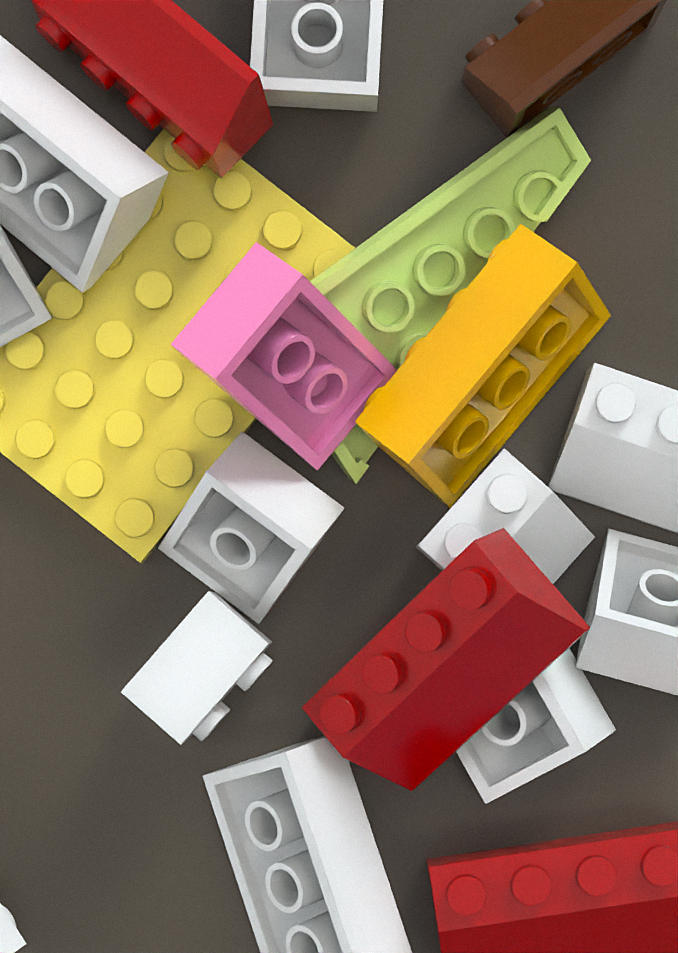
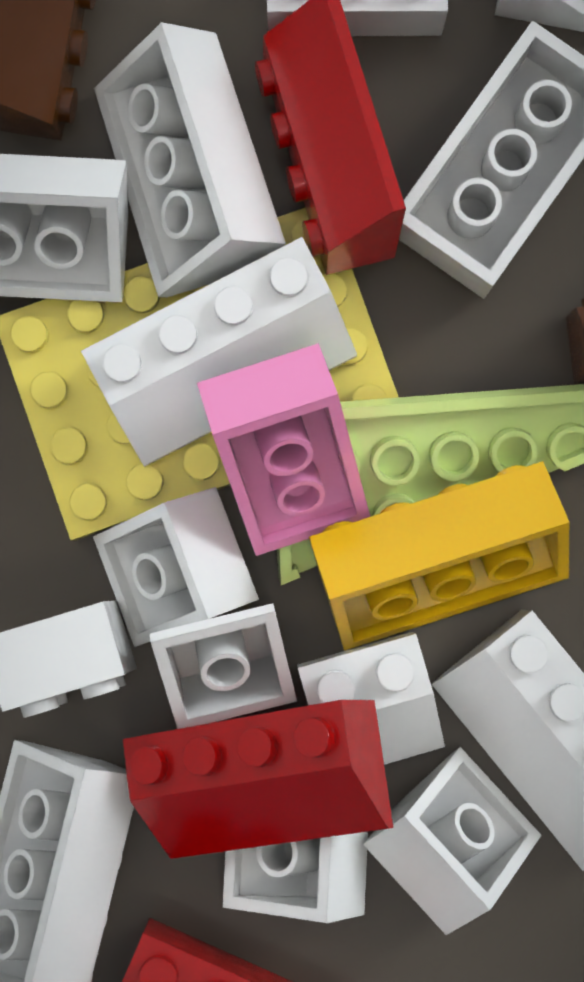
camera: 30 degrees right, 0 degrees up
(174, 263) = (235, 322): none -> white slope
(352, 582) = (224, 666): none -> white slope

